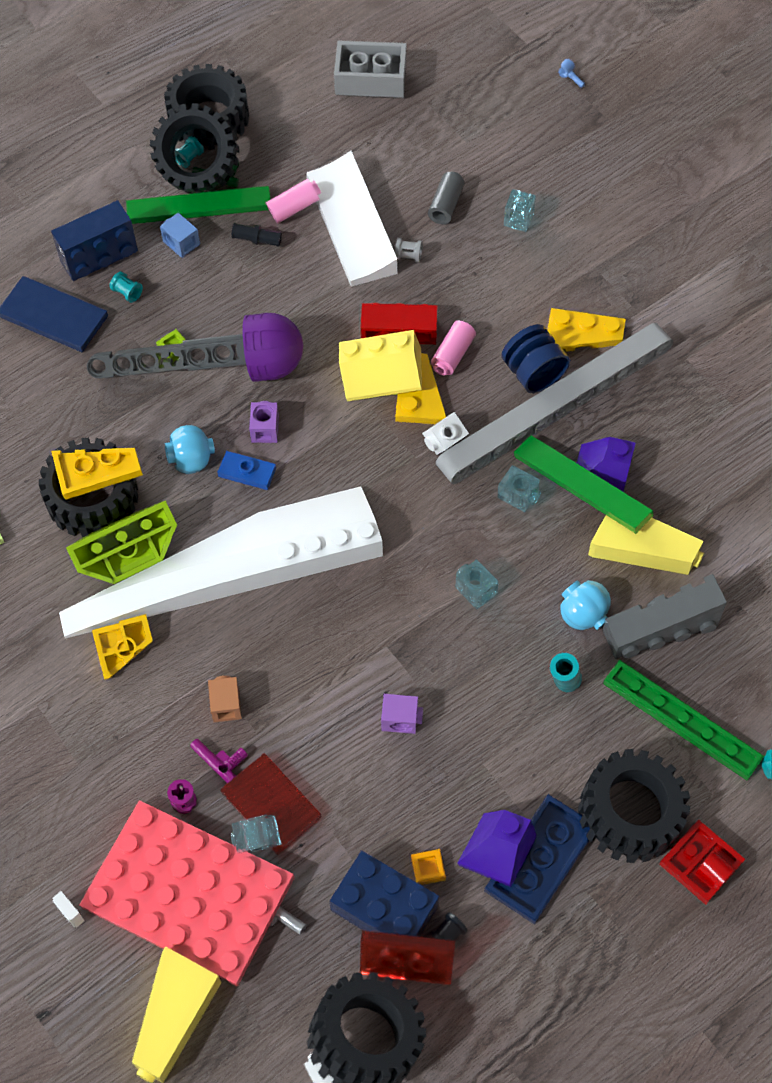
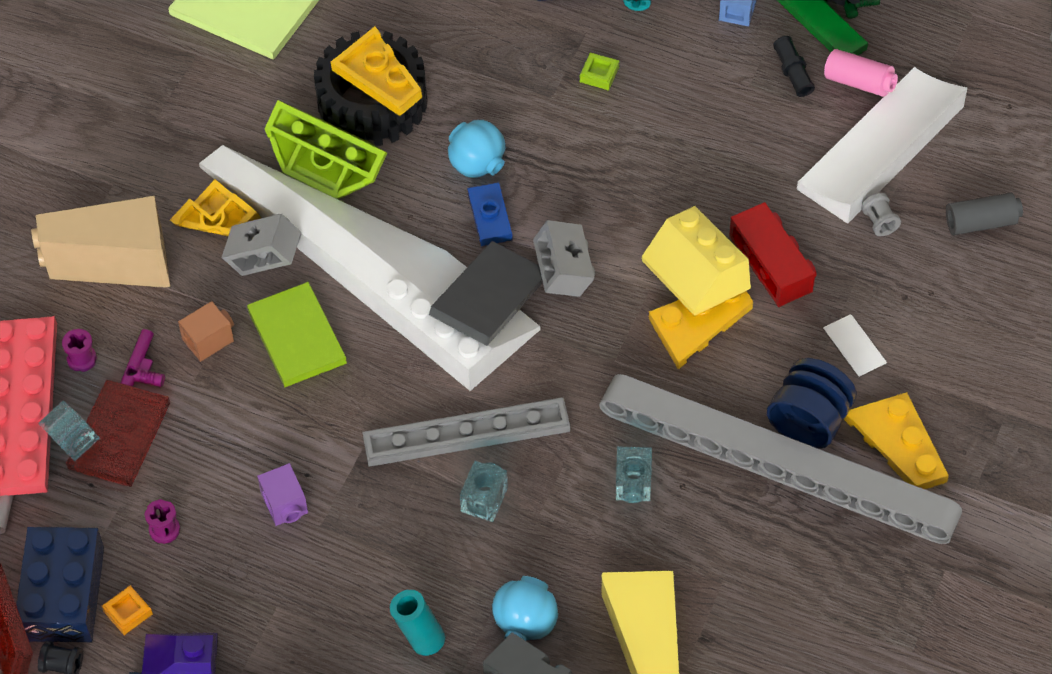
camera: 60 degrees right, 5 degrees down
(105, 729) = (104, 244): none -> tan slope
(180, 623) = (261, 244): none -> light grey brick
(264, 431) = (544, 197): medium lavender brick -> none
(264, 642) = (296, 334): none -> lime tile
(268, 347) = (635, 137): piece -> none
(322, 441) = (563, 258): none -> light grey brick
(324, 499) = (488, 293): none -> dark grey tile
(368, 797) = (158, 523): none -> magenta bush
(416, 575) = (466, 431): none -> light grey tile
(444, 433) = (653, 366): white brick -> none
(453, 348) = (776, 321): bright pink brick -> none
(493, 318) = (855, 345): none -> white sticker
(519, 210) = (1019, 292): clear light blue brick -> none
(584, 484) = (675, 531): green tile -> none
(608, 459) = (720, 550): dark purple slope -> none

